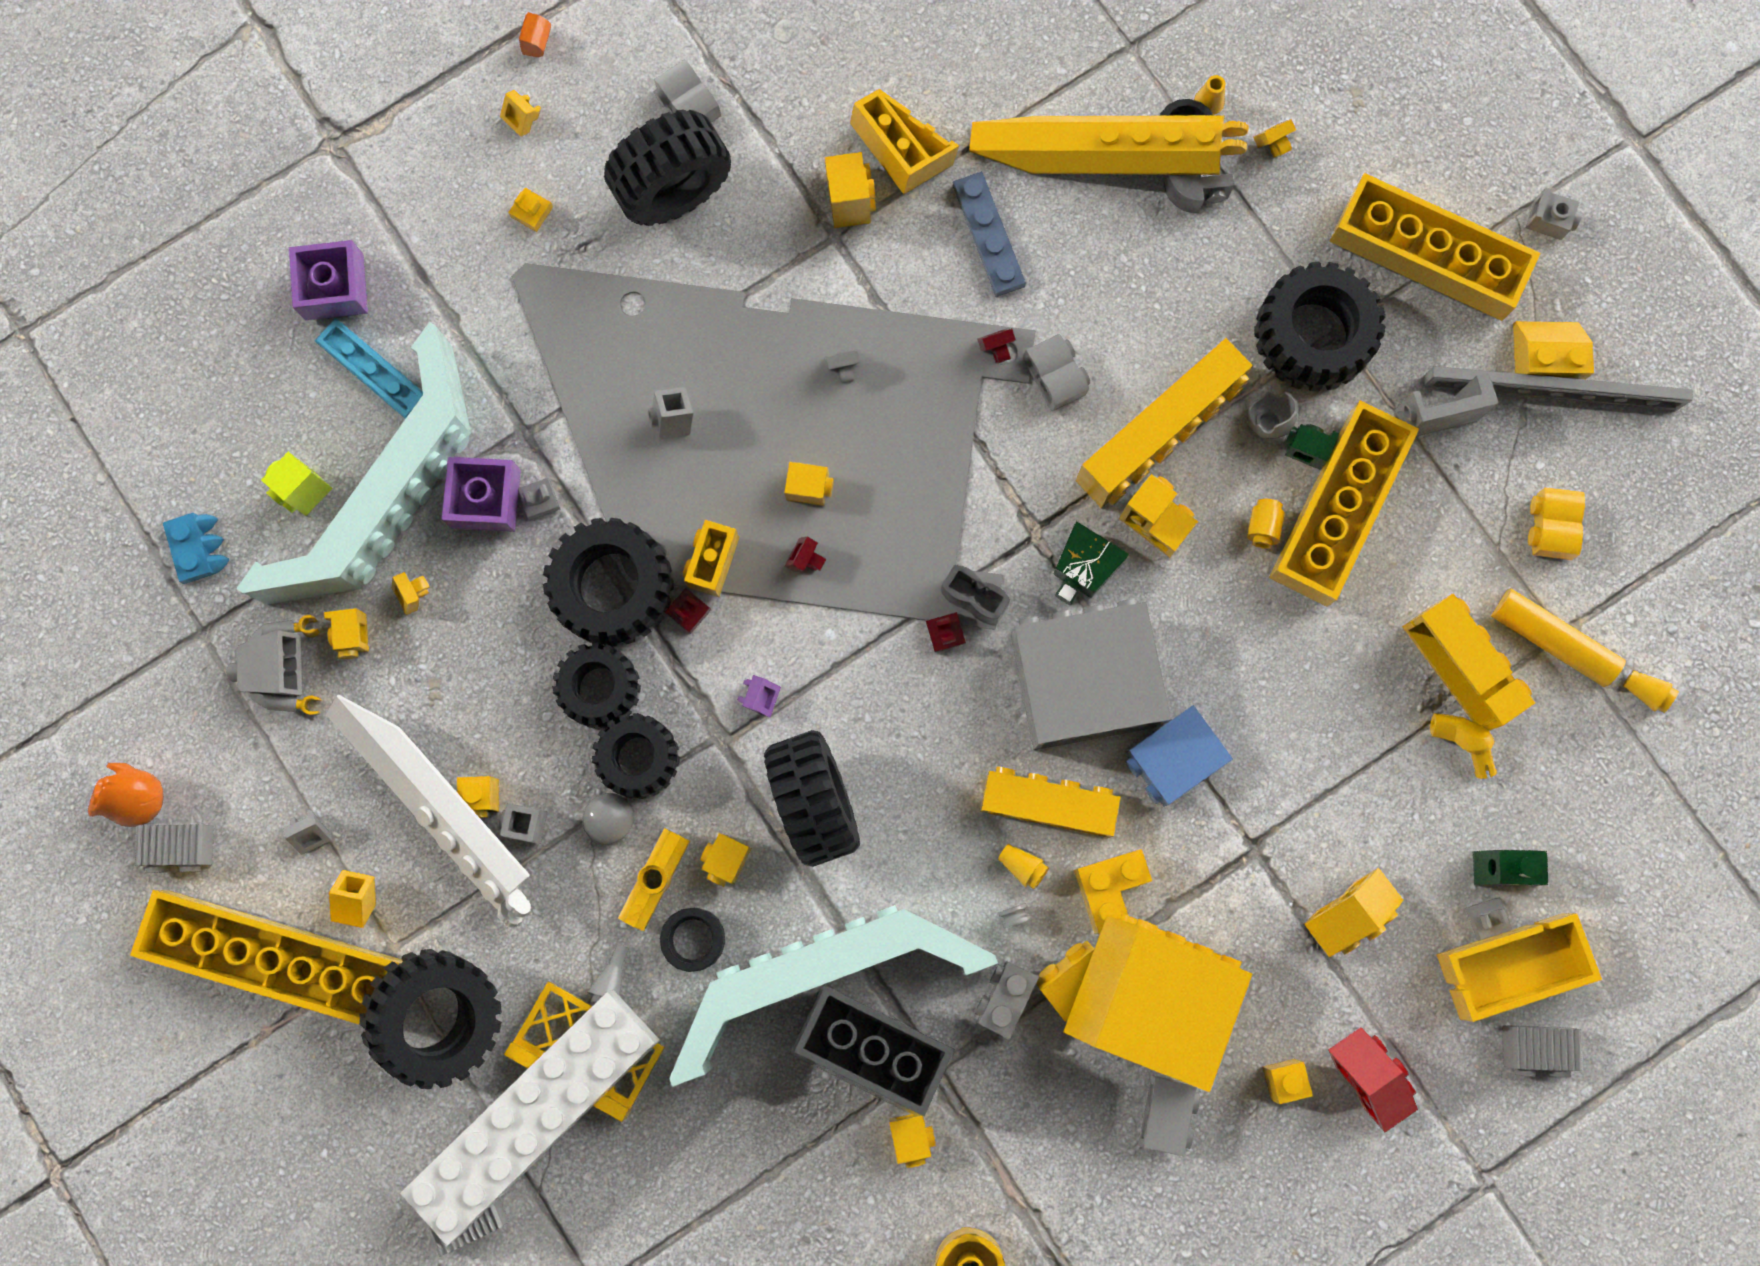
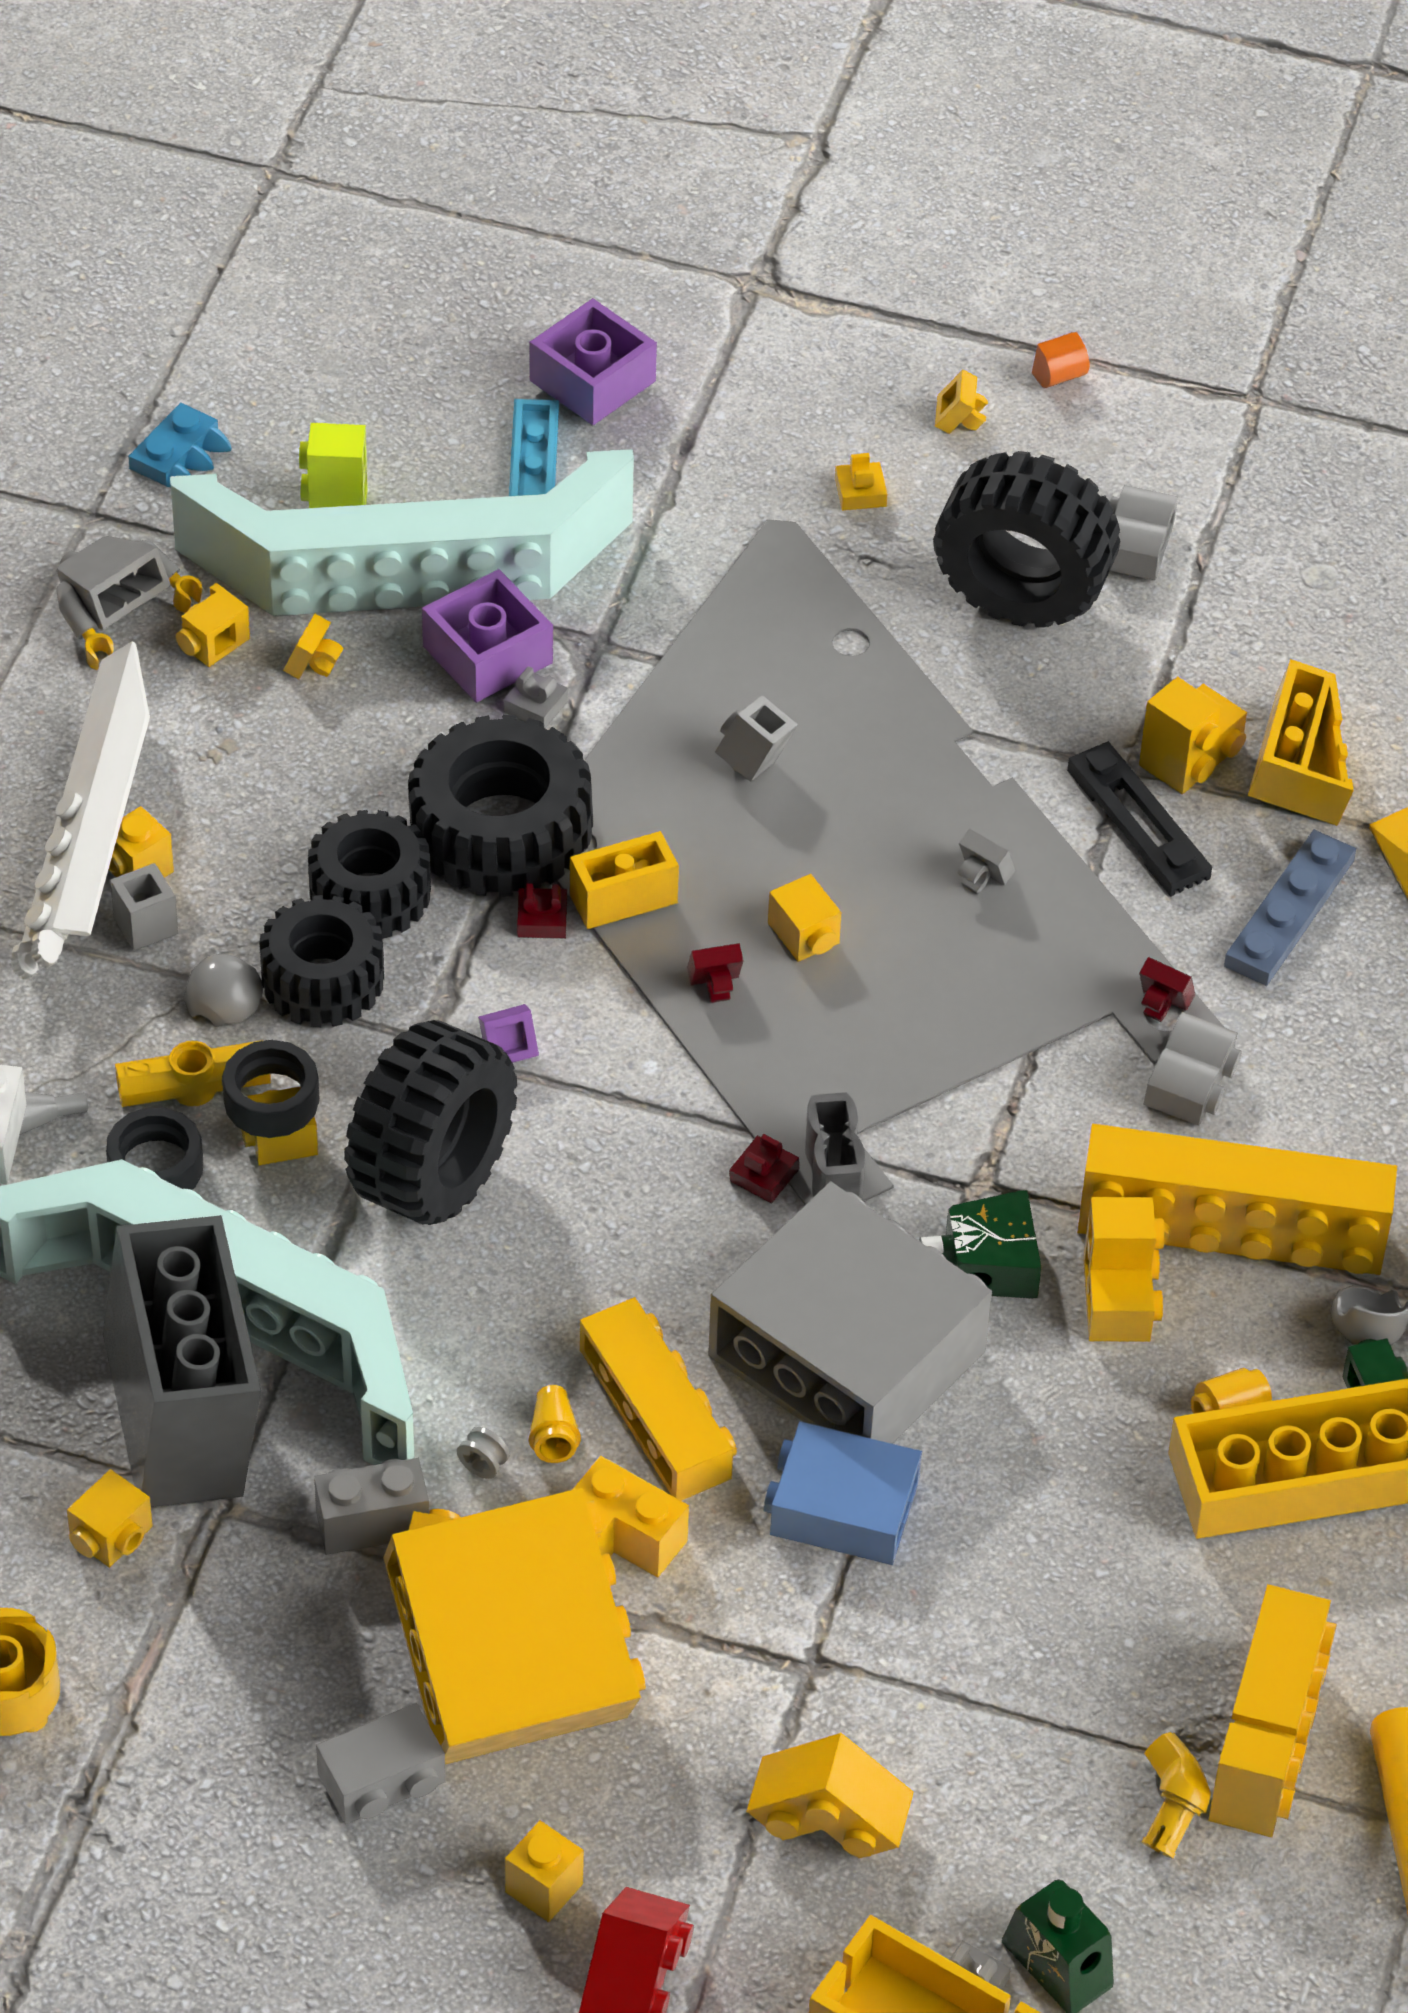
camera: 45 degrees right, 30 degrees down
(692, 846) = (274, 1118): none -> black tyre
(827, 249) = (1171, 864): none -> black container

